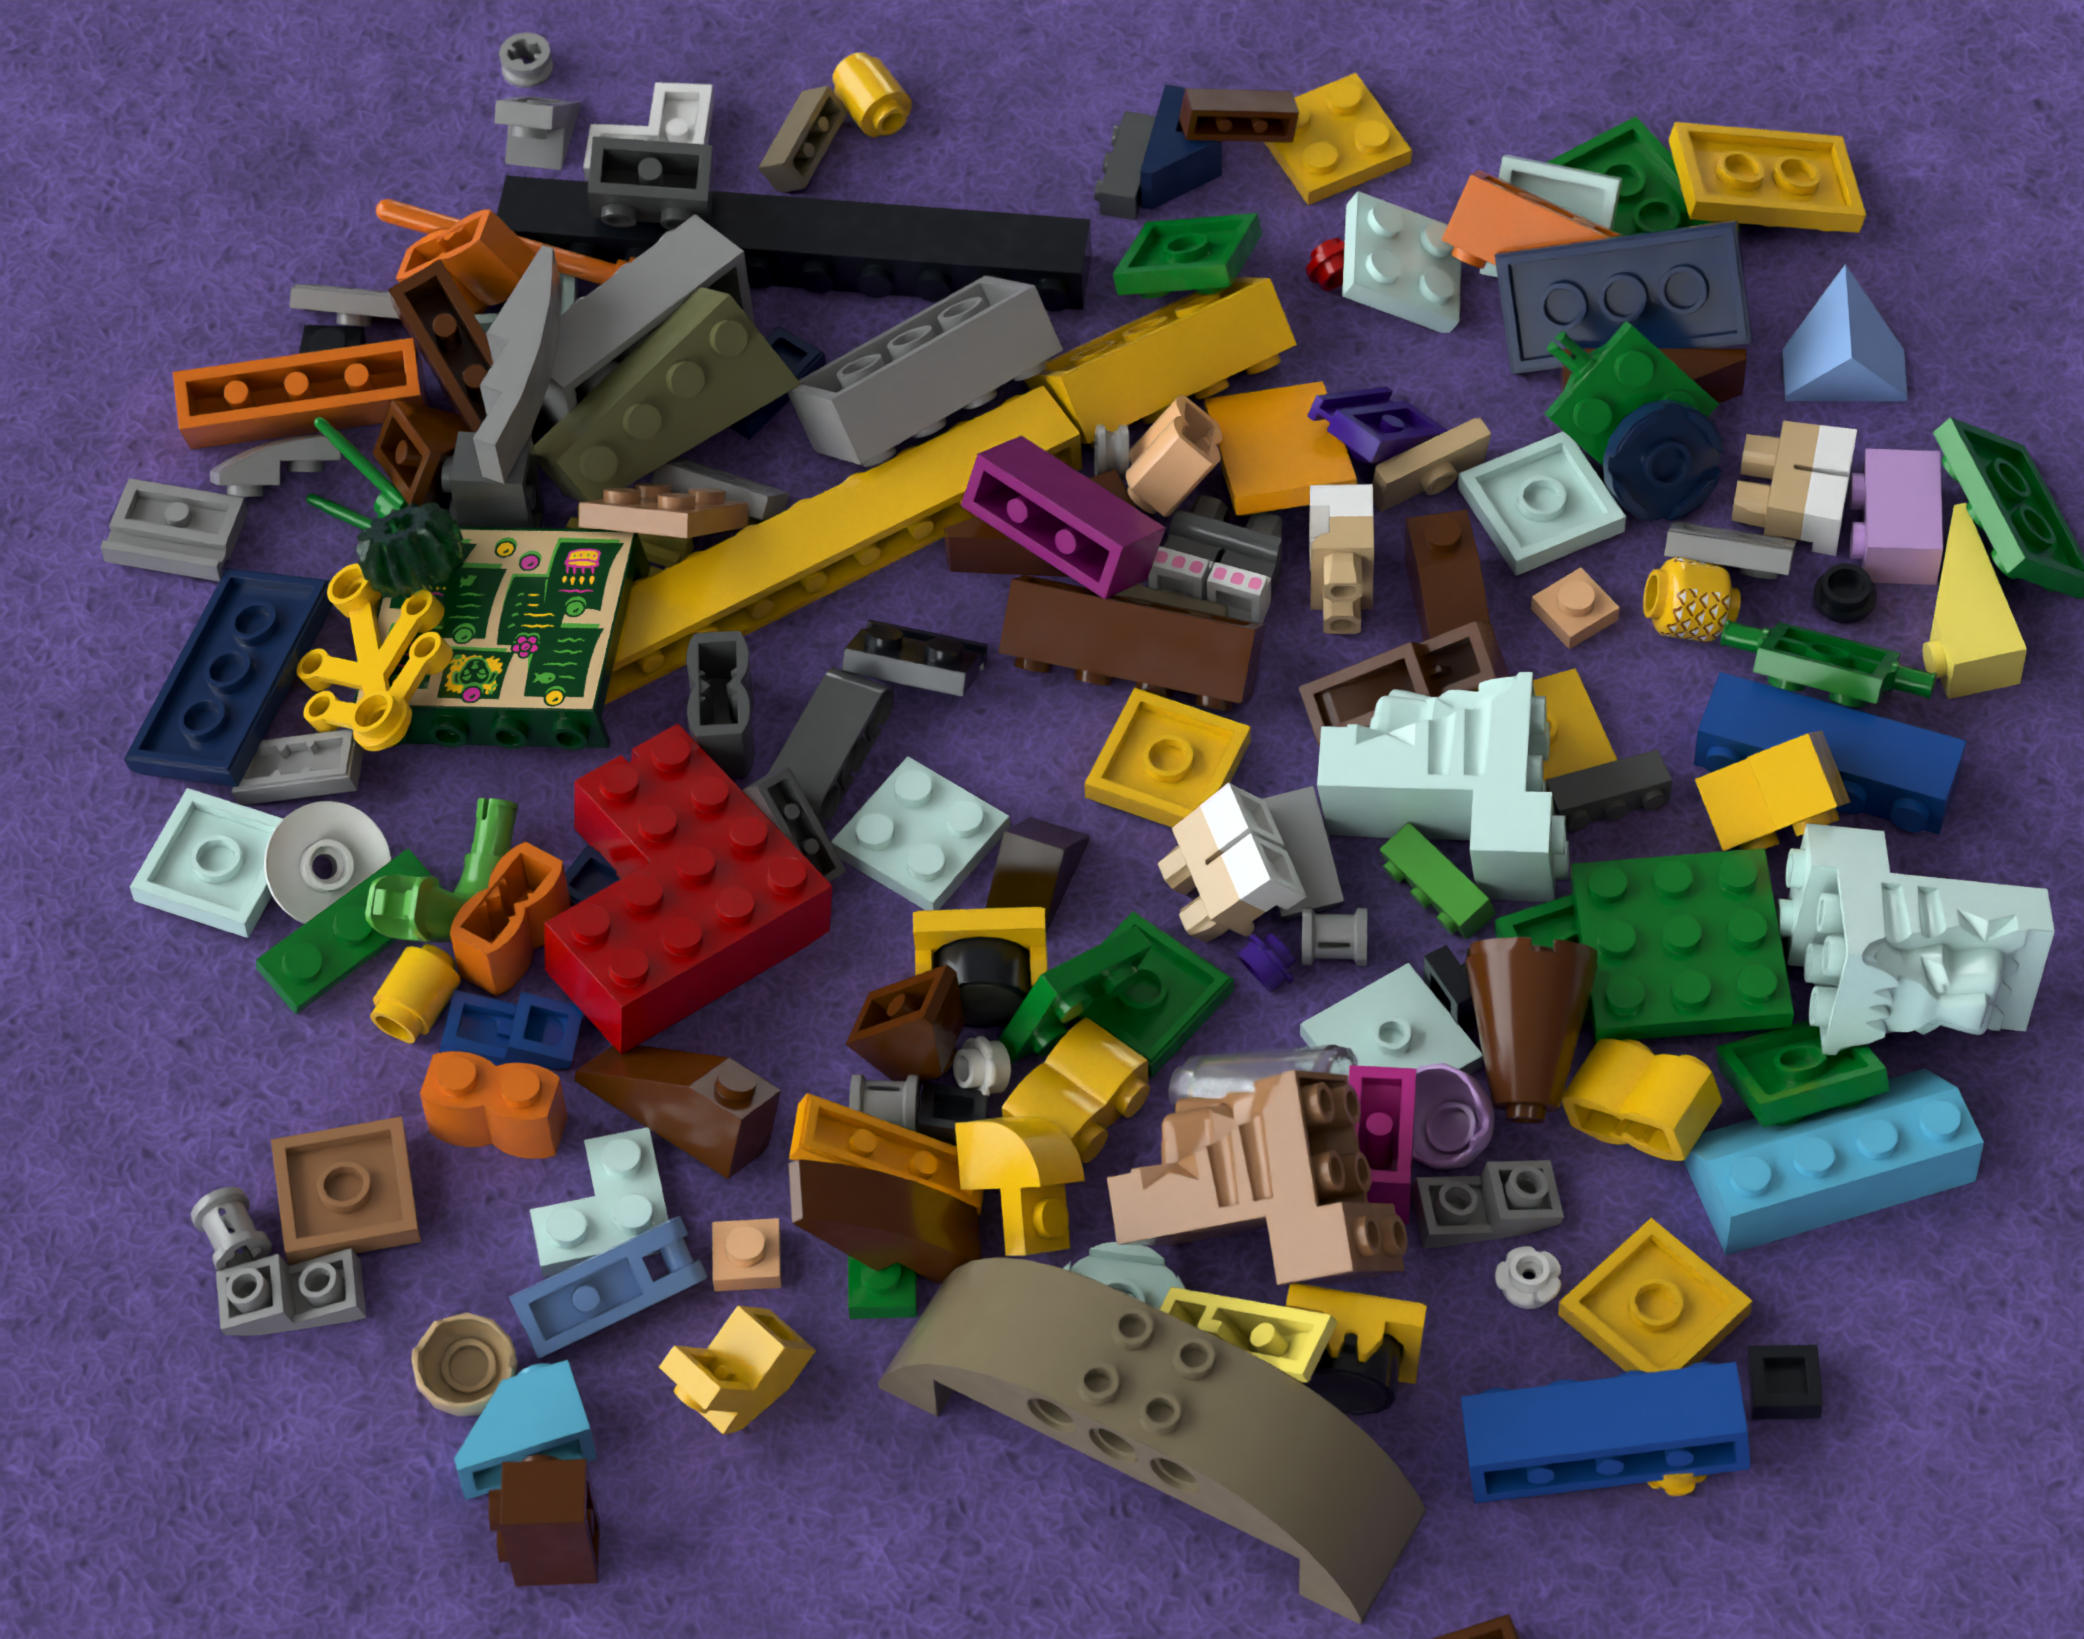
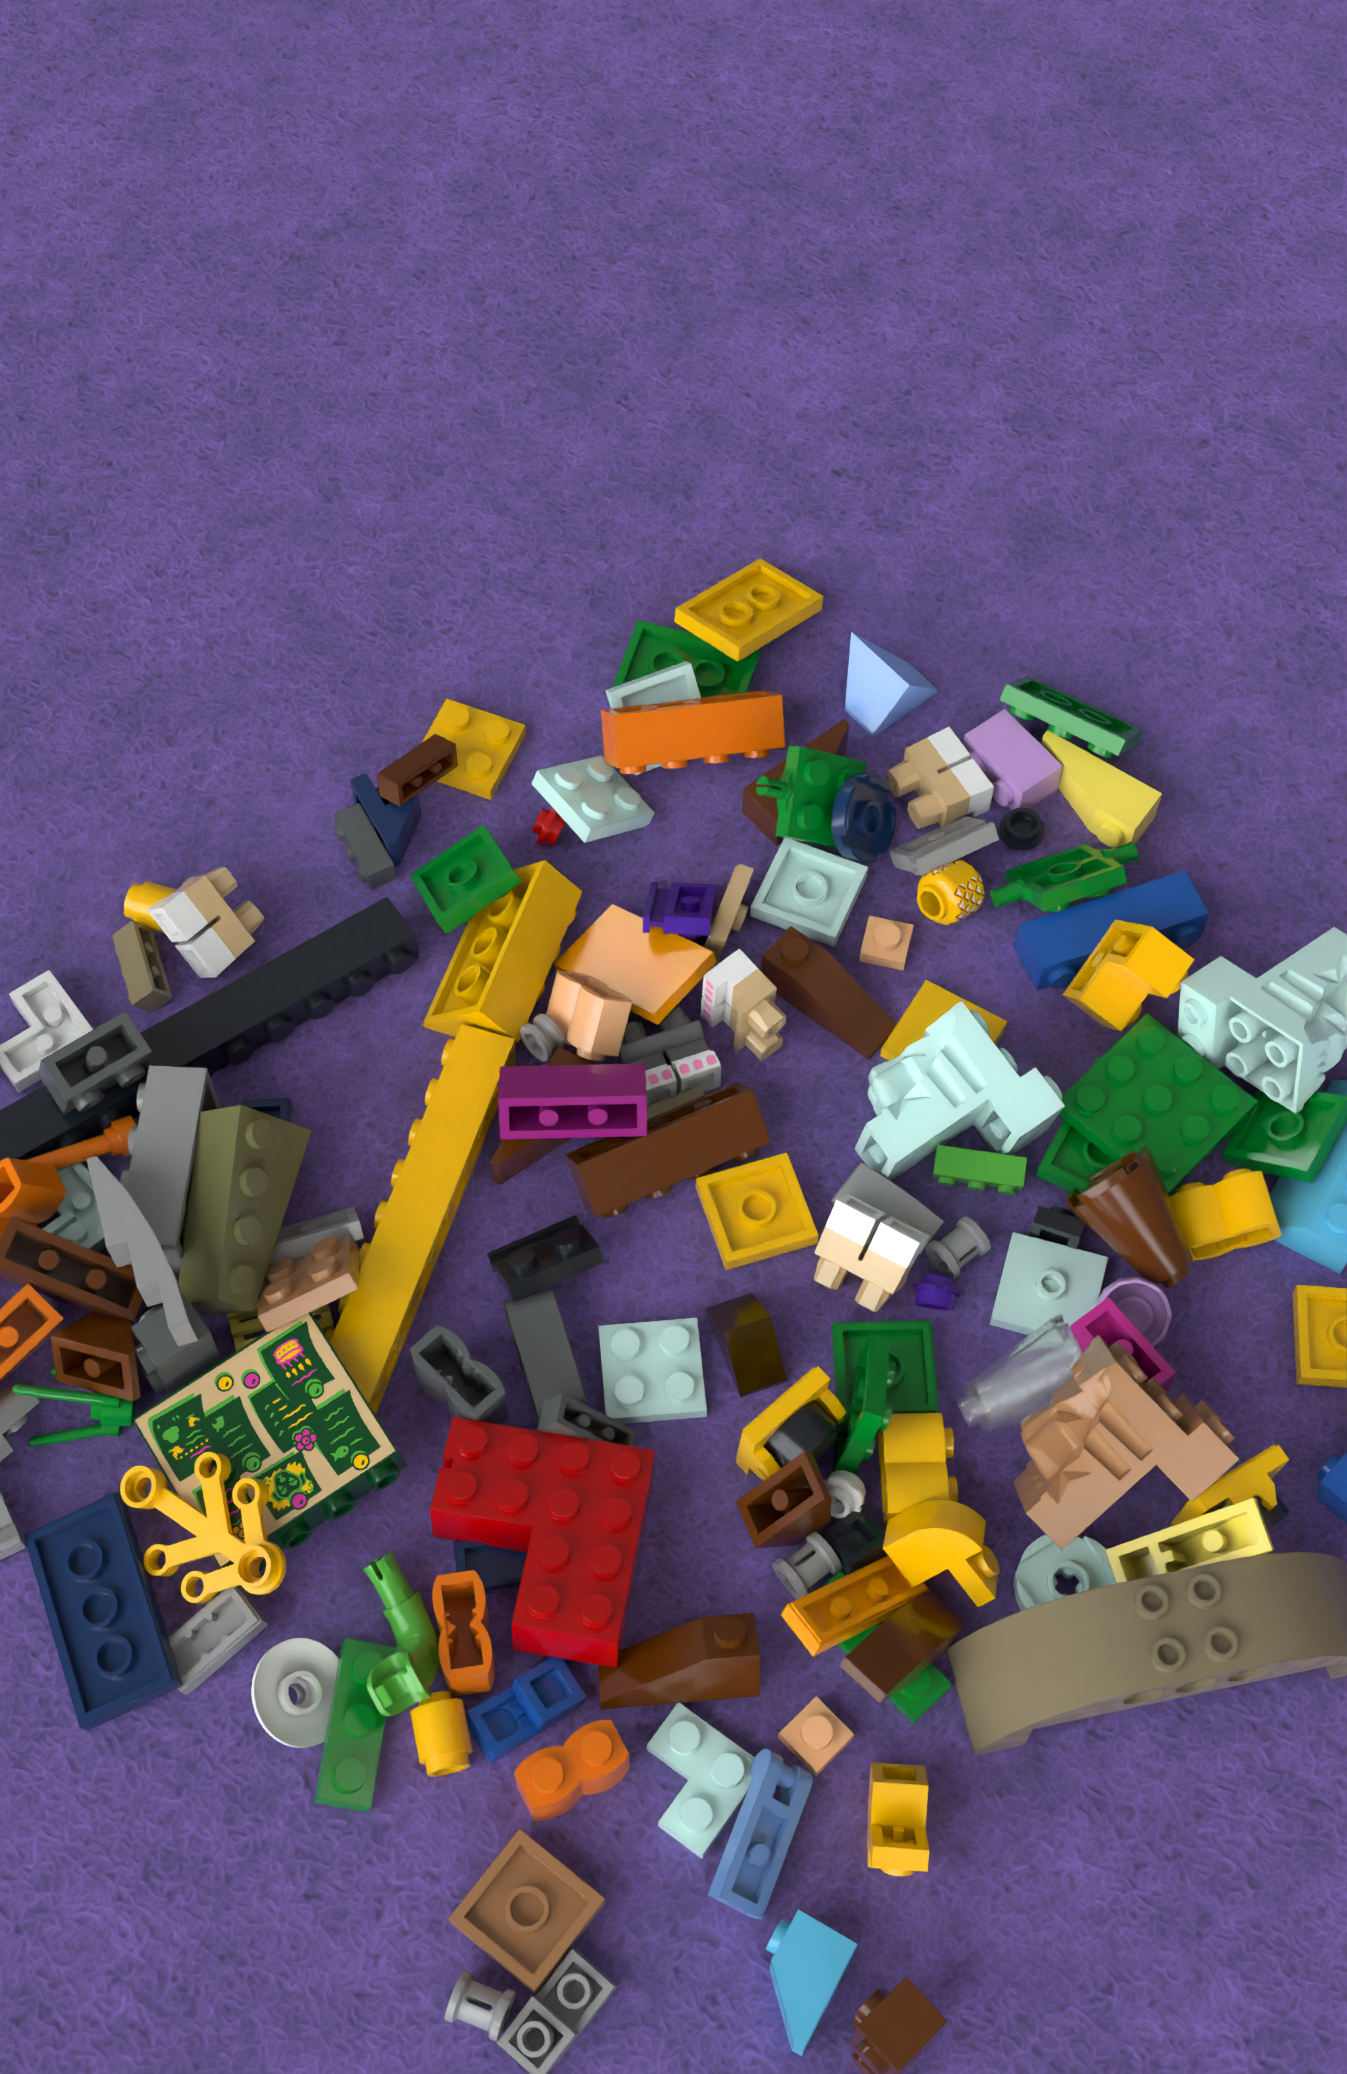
camera: 45 degrees left, 5 degrees up
(209, 864) = (216, 1752): light aqua plate -> none
(410, 550) = (172, 1433): clear green gear -> none
(463, 1363) = (728, 1968): tan hair -> none
(890, 104) = (204, 924): none -> hips
(925, 371) = (380, 1066): light grey brick -> none
(1430, 668) = (848, 1059): reddish brown slope -> none
(1499, 1203) = (1200, 1343): light grey slope -> none
(1528, 1292) = (1258, 1385): white plate -> none
(1611, 789) = (1022, 1029): dark grey piece -> none
(1669, 284) = (751, 732): dark blue tile -> none

